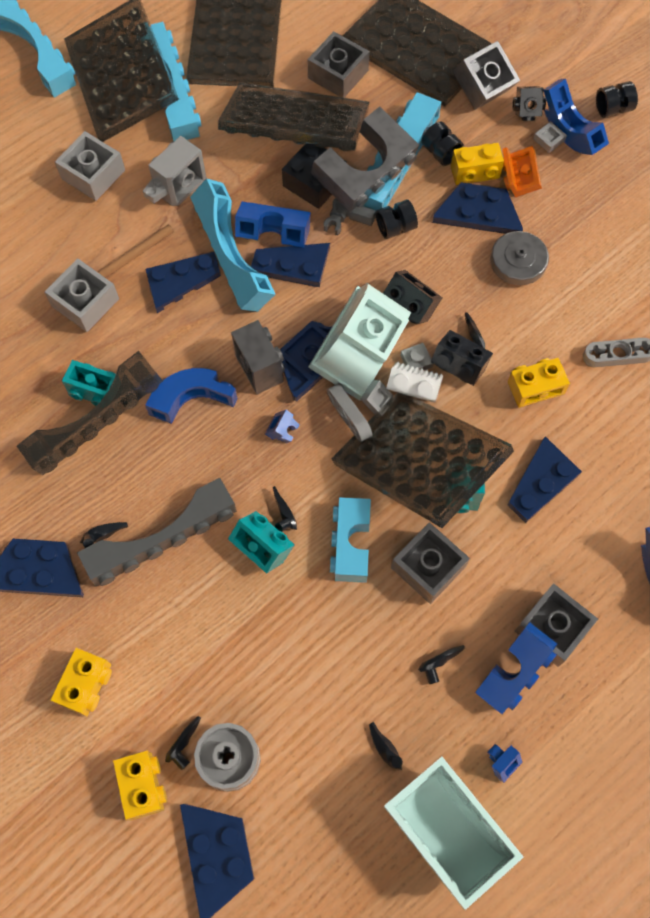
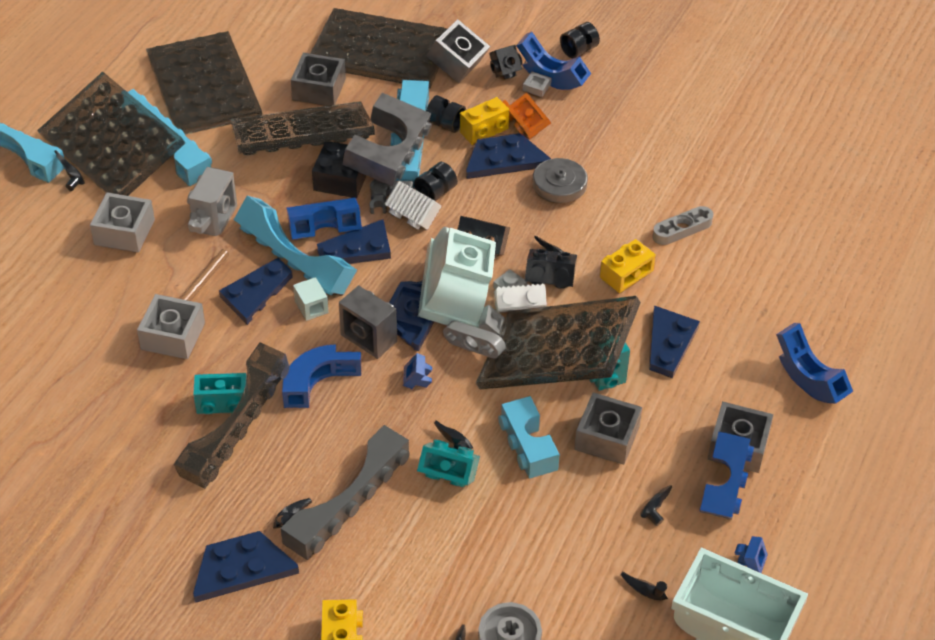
camera: 25 degrees left, 20 degrees down
(74, 93) = (73, 173): none -> black bar
(221, 308) = (311, 298): none -> light aqua brick
(361, 238) = (413, 205): none -> white brick

